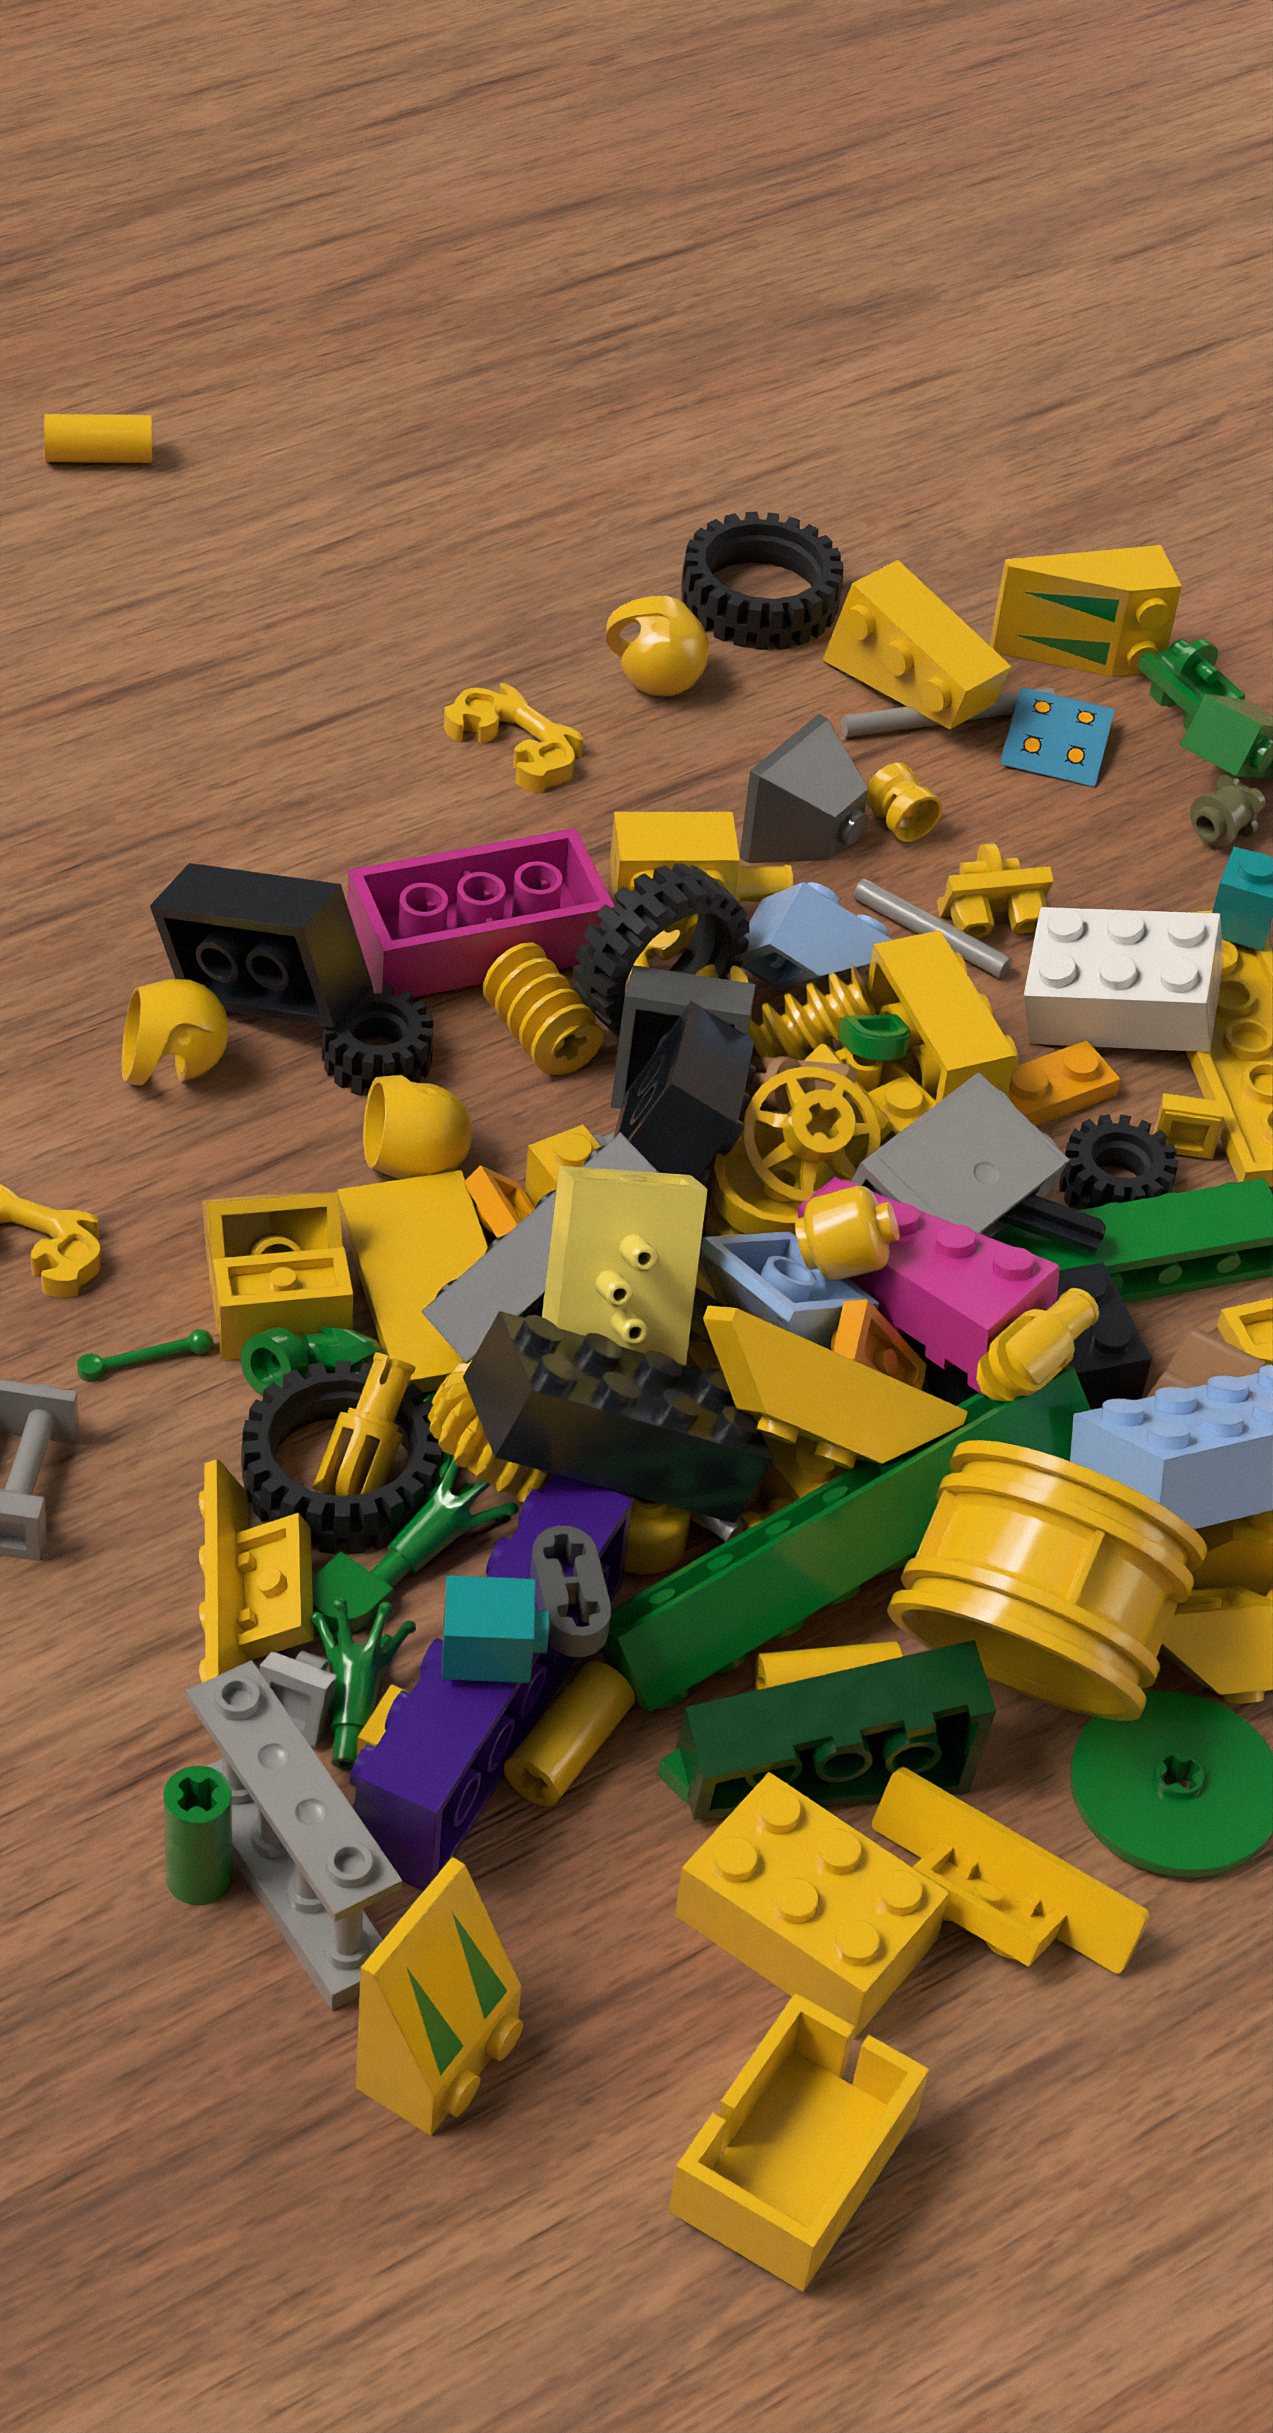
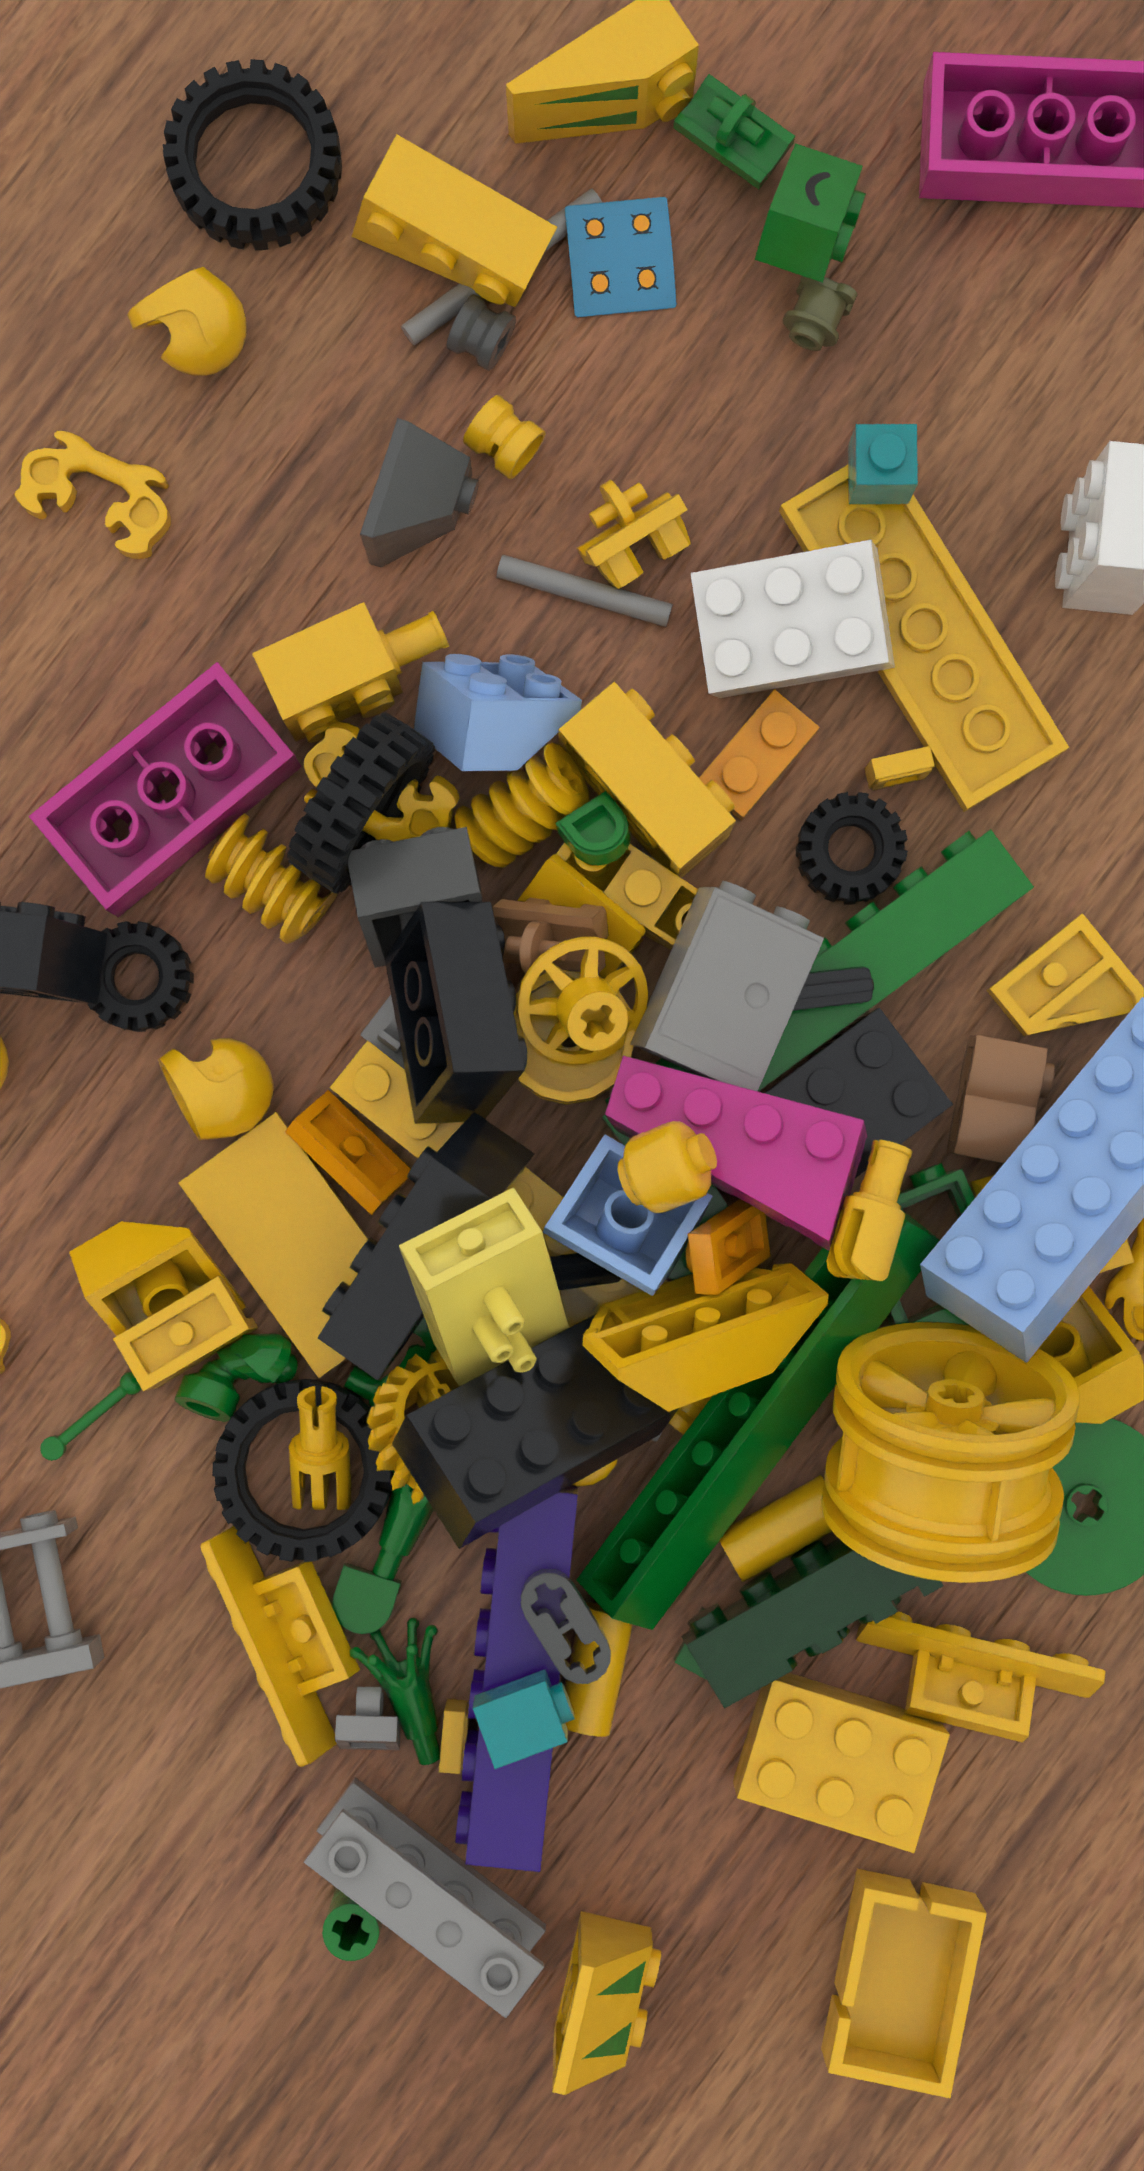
camera: 15 degrees left, 40 degrees up
(912, 734) = (481, 332): none -> dark grey wheel

